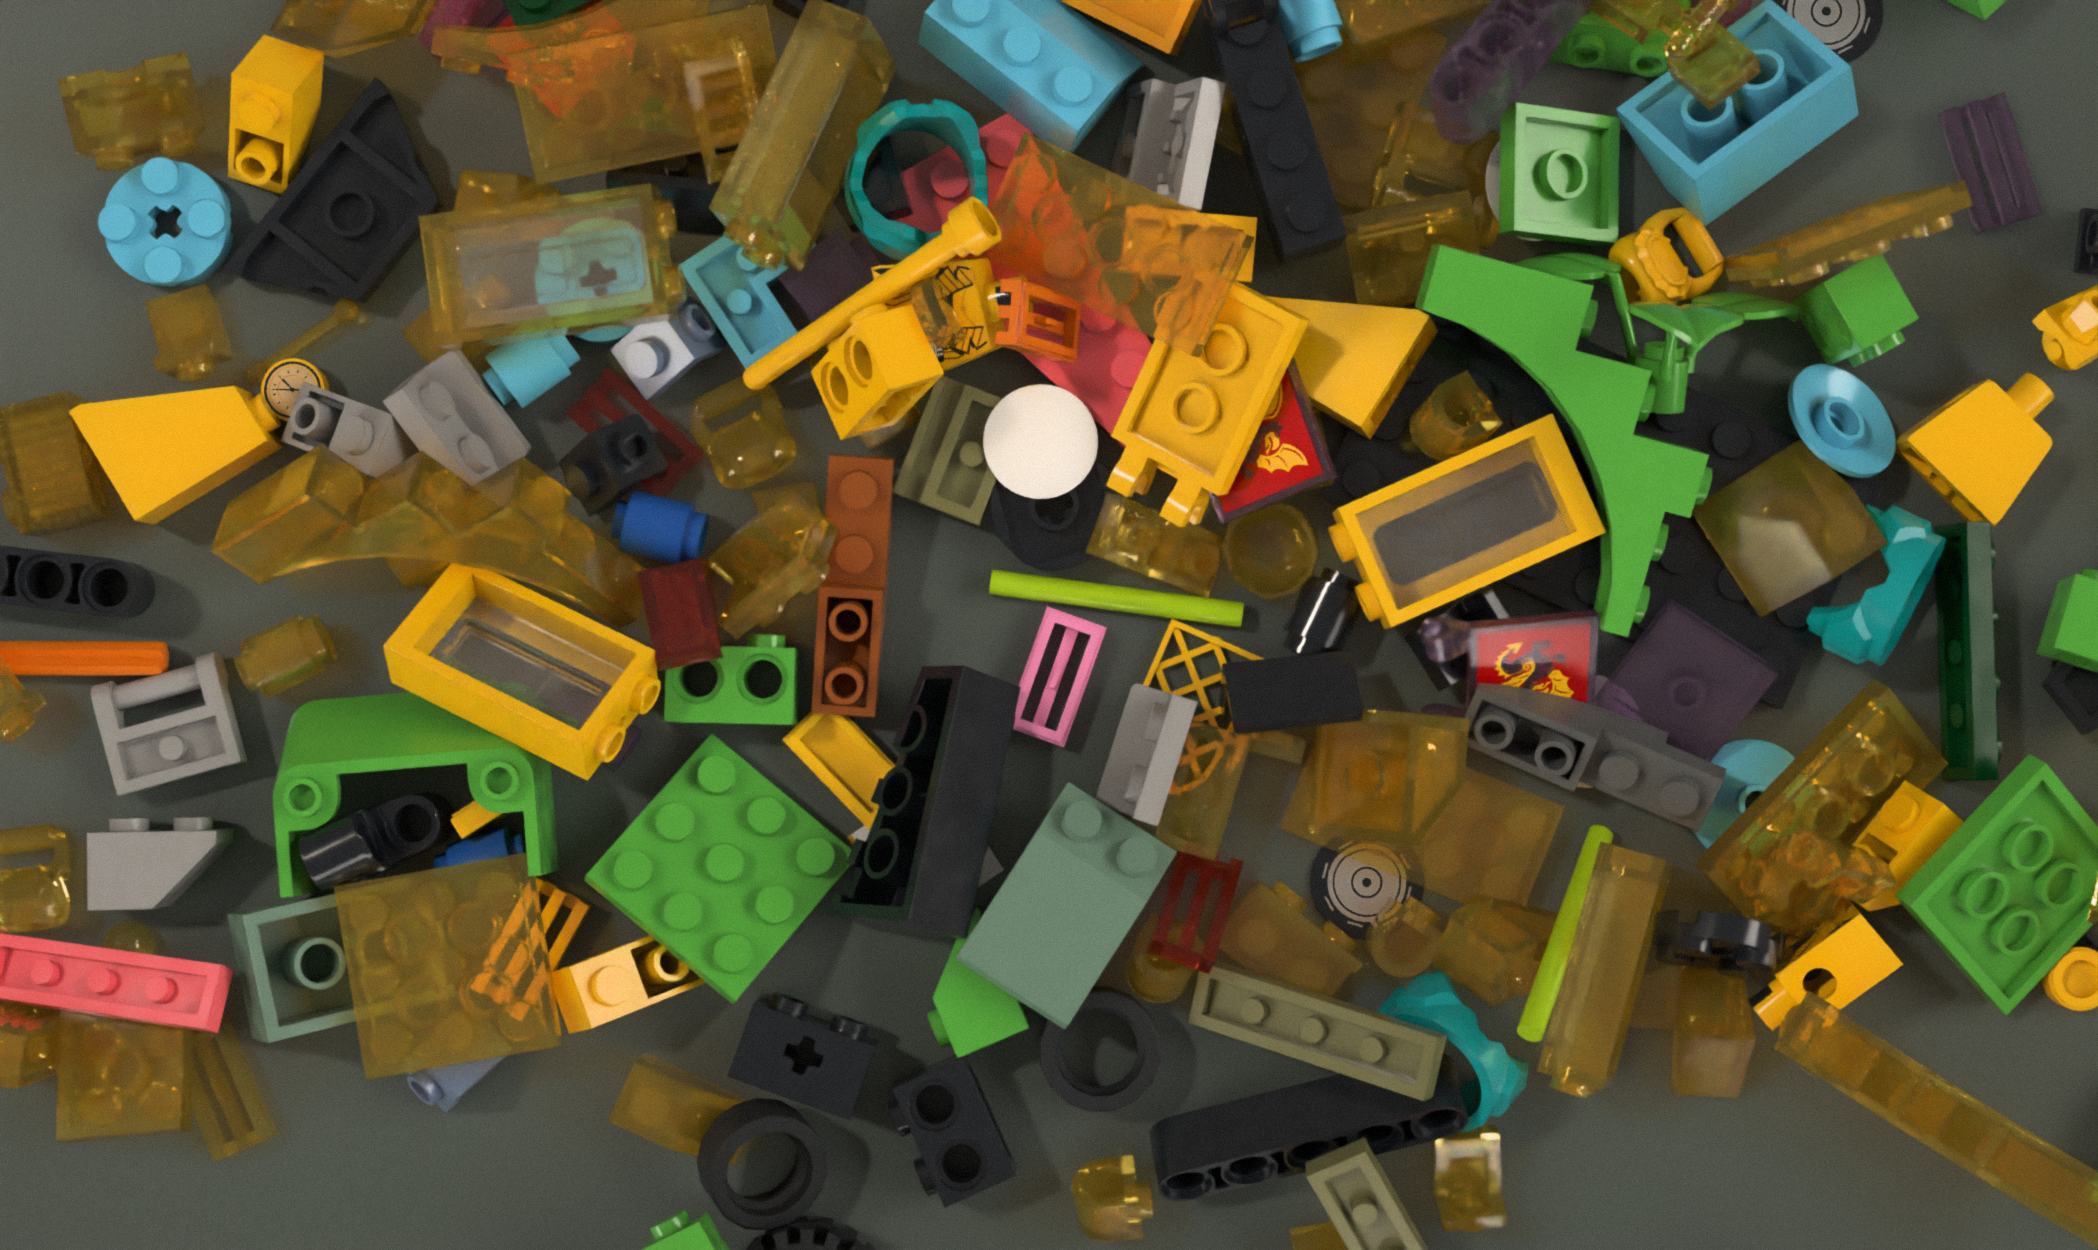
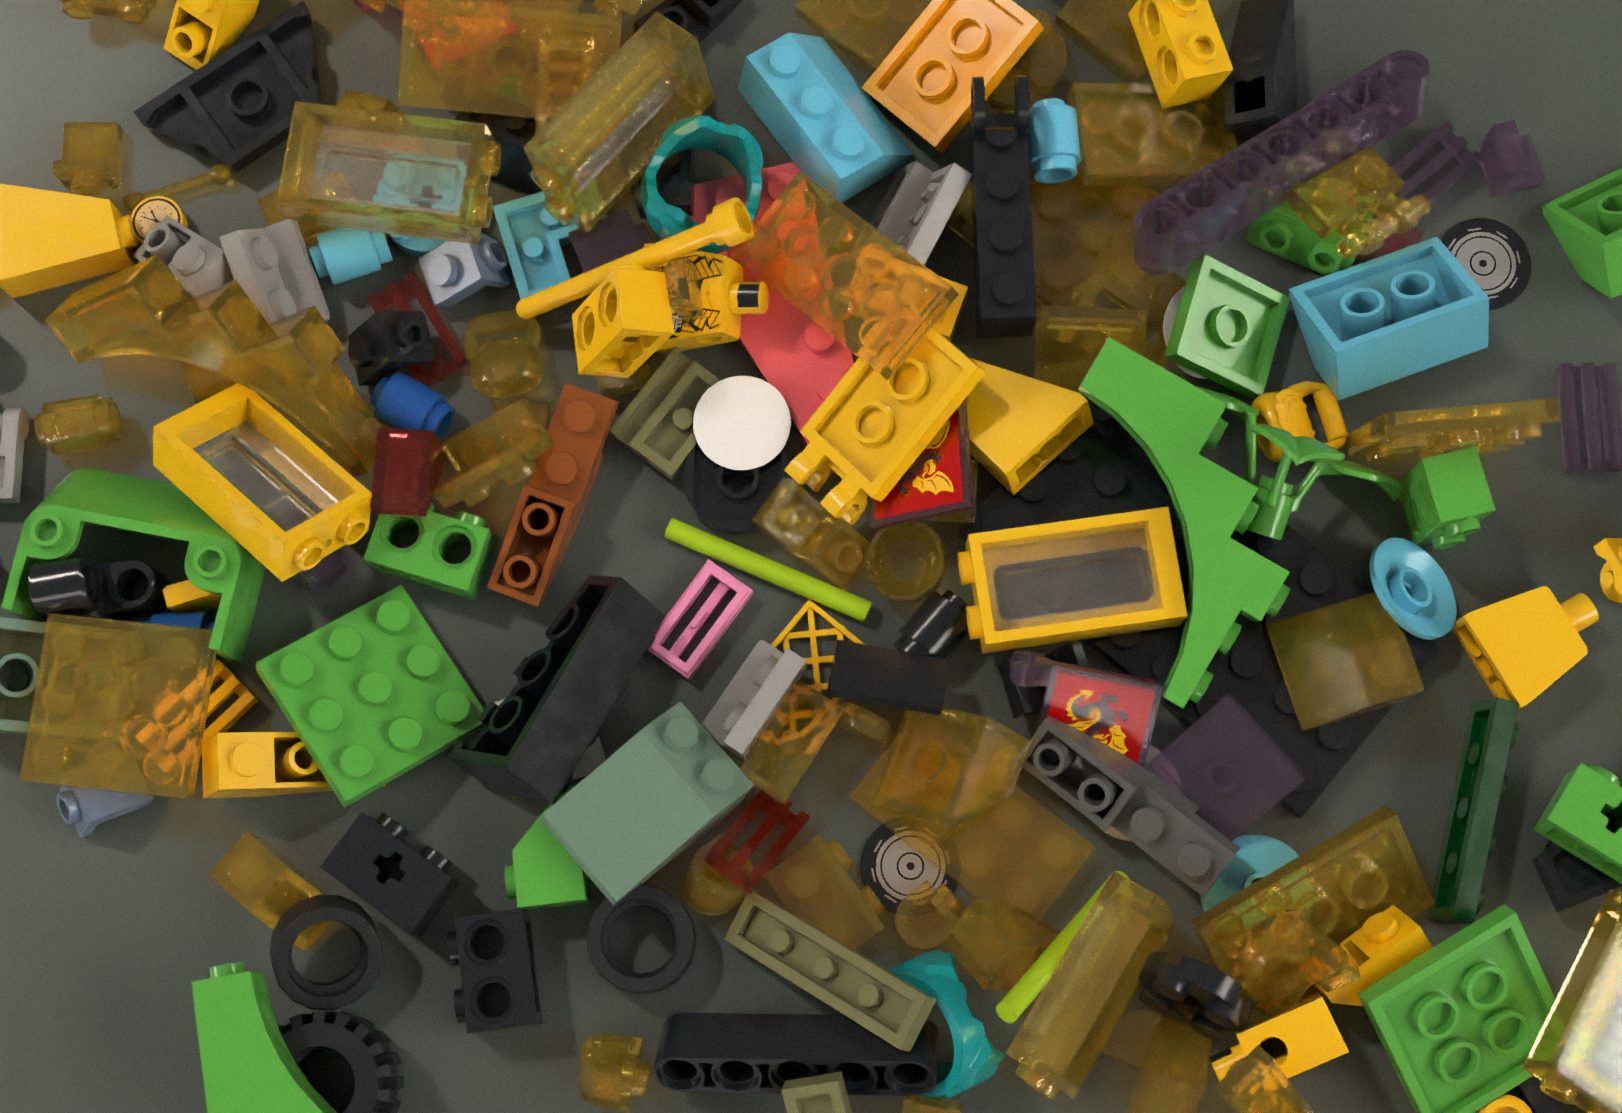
camera: 15 degrees right, 10 degrees down
(130, 223) = (89, 45): medium azure plate -> none
(842, 760) = (500, 635): yellow tile -> none
(1019, 318) = (740, 321): orange tile -> none
(1453, 419) = (1085, 490): clear yellow plate -> none
(1716, 69) = (1377, 273): clear yellow tile -> none
(1876, 622) = (1393, 758): teal piece -> none

